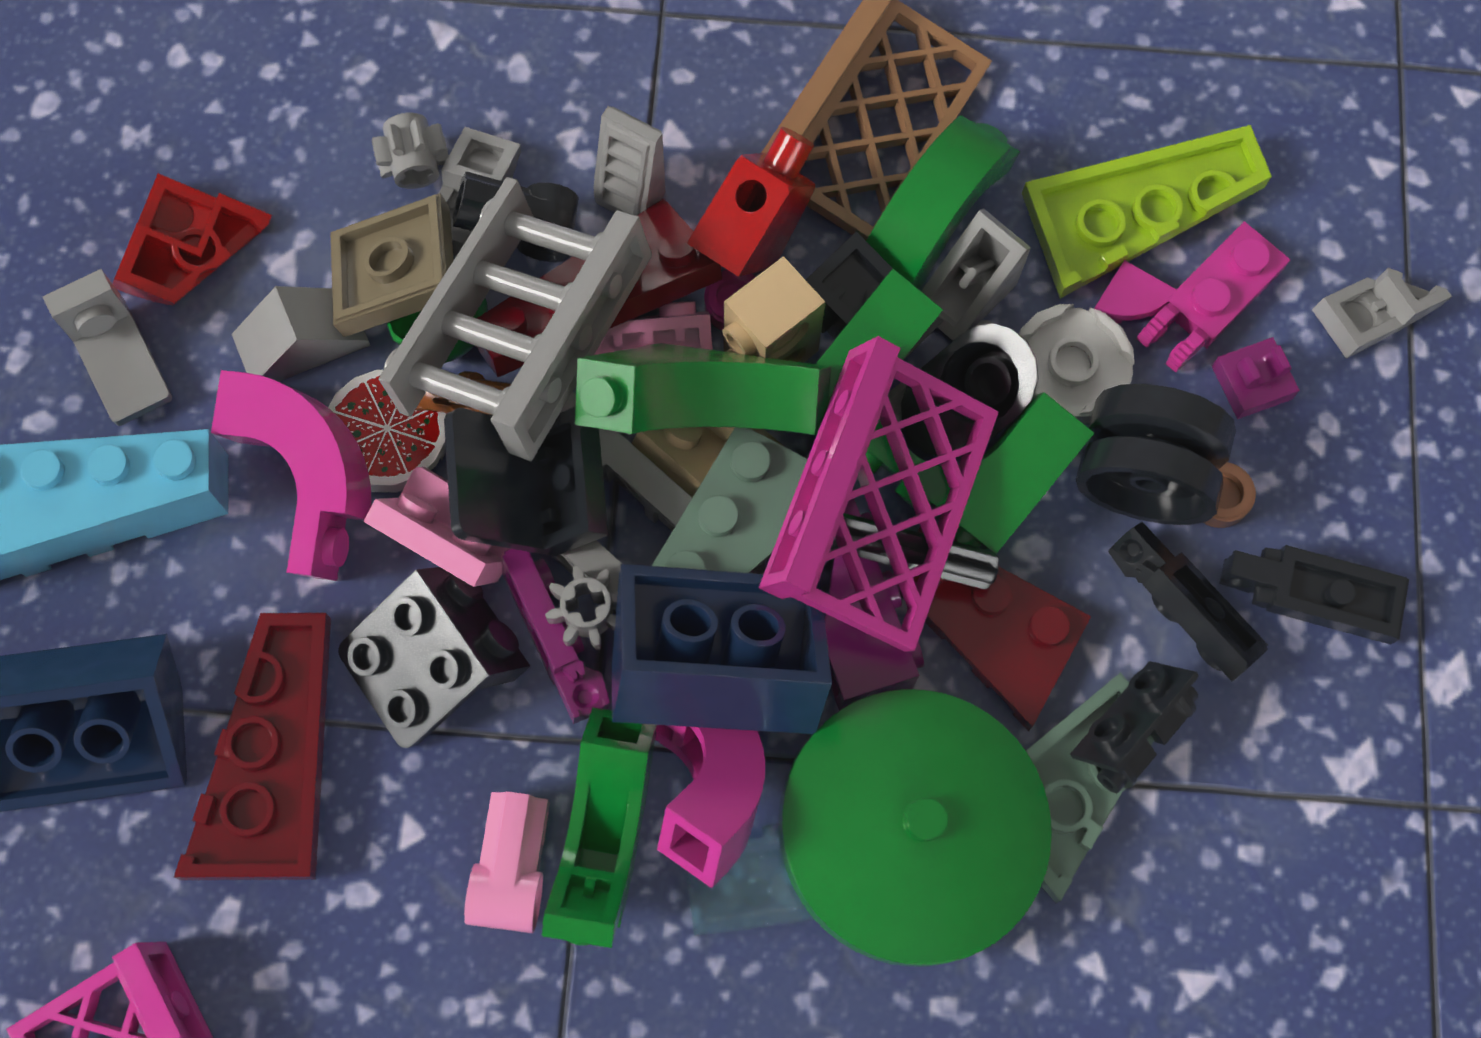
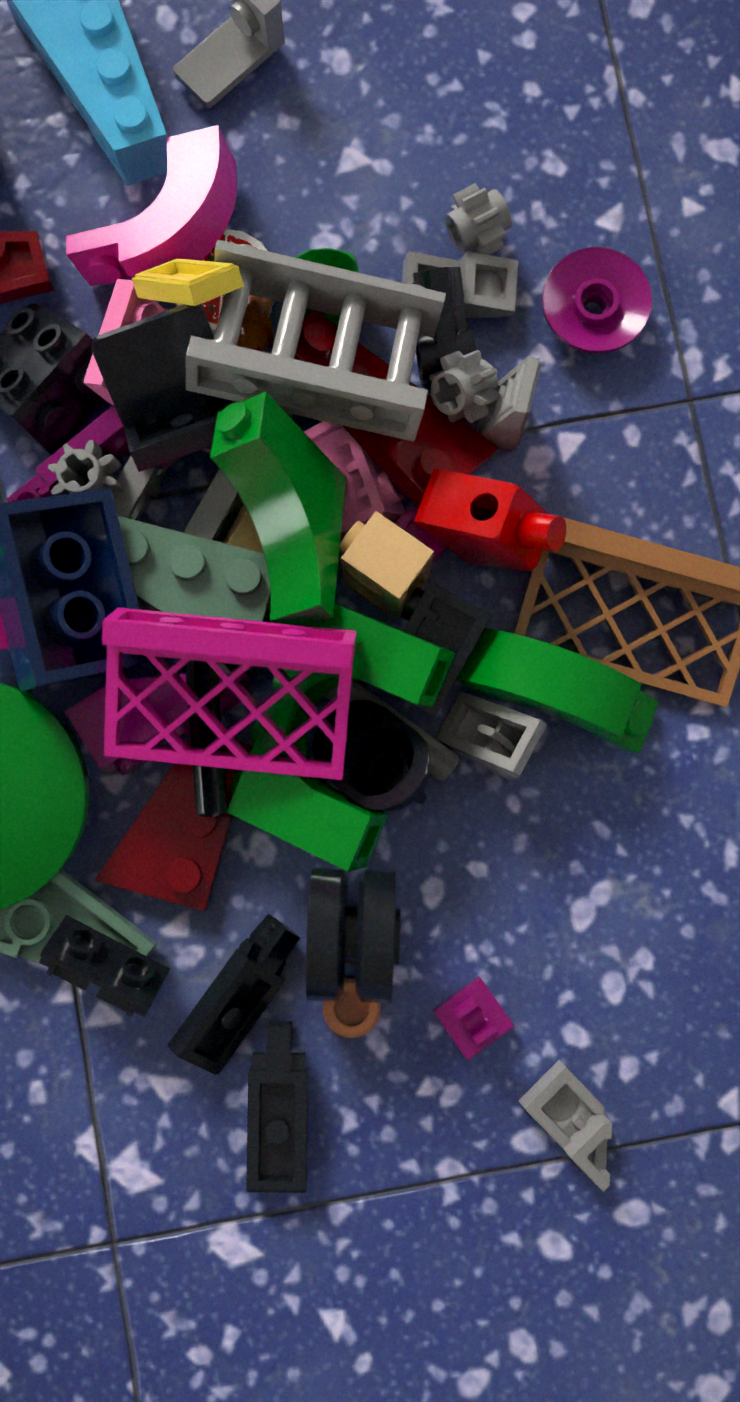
camera: 80 degrees right, 10 degrees up
(183, 240) = (347, 67): red slope -> none
(292, 333) = (292, 188): light grey slope -> none
(389, 264) = (365, 233): dark tan tile -> none
(408, 430) = (187, 281): none -> light yellow tile
(531, 42) = (600, 278): none -> magenta dish
(595, 197) = (464, 386): none -> light grey gear
(1078, 356) = (443, 847): white tile -> none
(1132, 204) = (614, 869): lime wing -> none
(1133, 295) = (523, 888): dark pink tile -> none
(1216, 293) = (549, 966): dark pink hinge -> none

